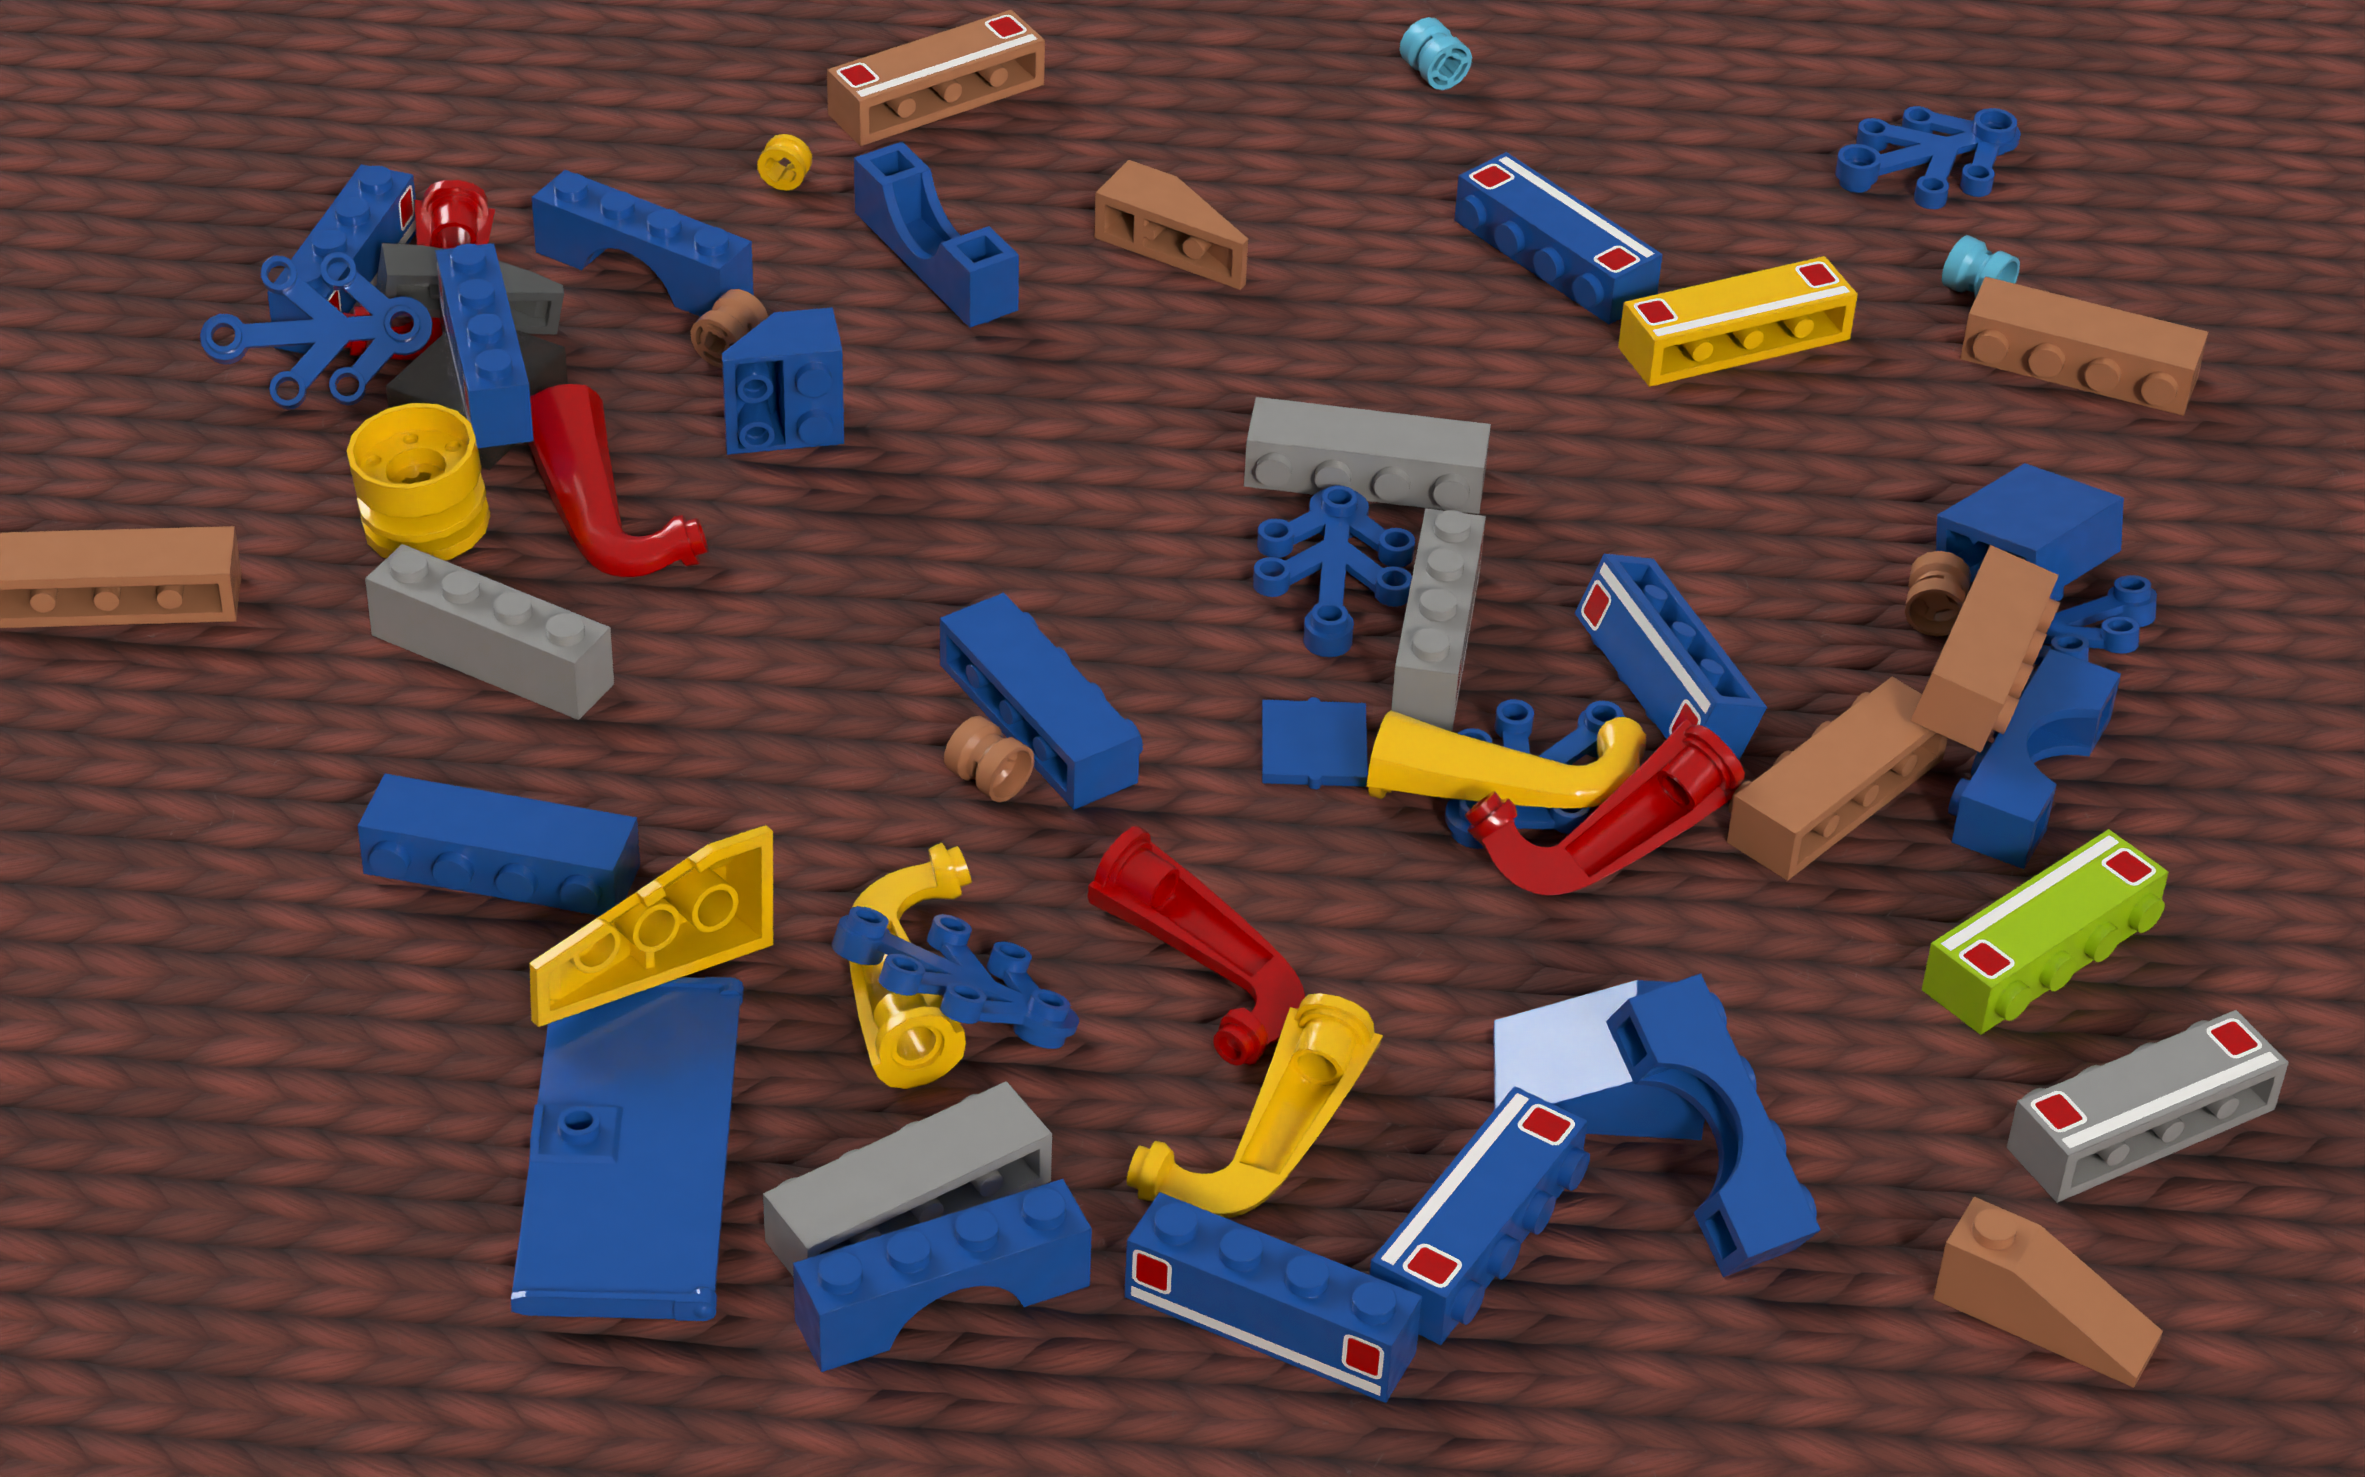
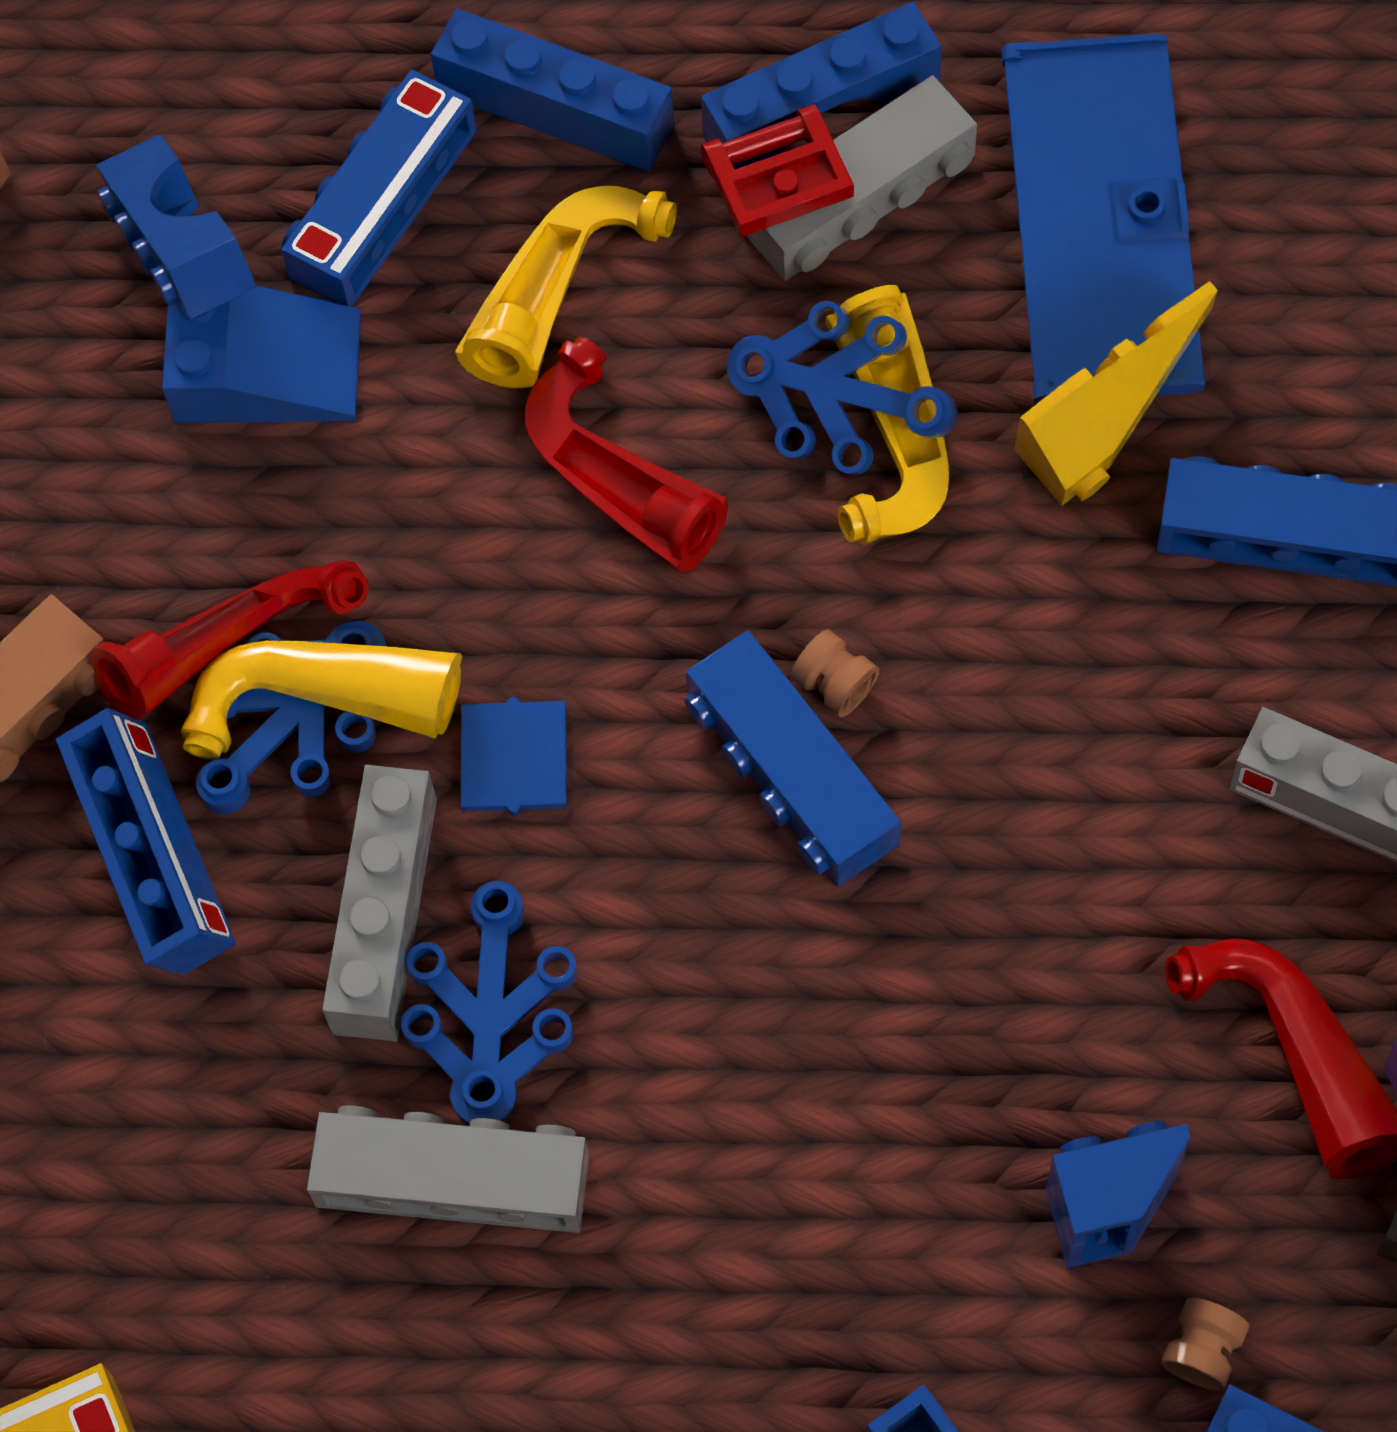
camera: 175 degrees left, 25 degrees up
(1002, 1114) = (781, 184): none -> red plate

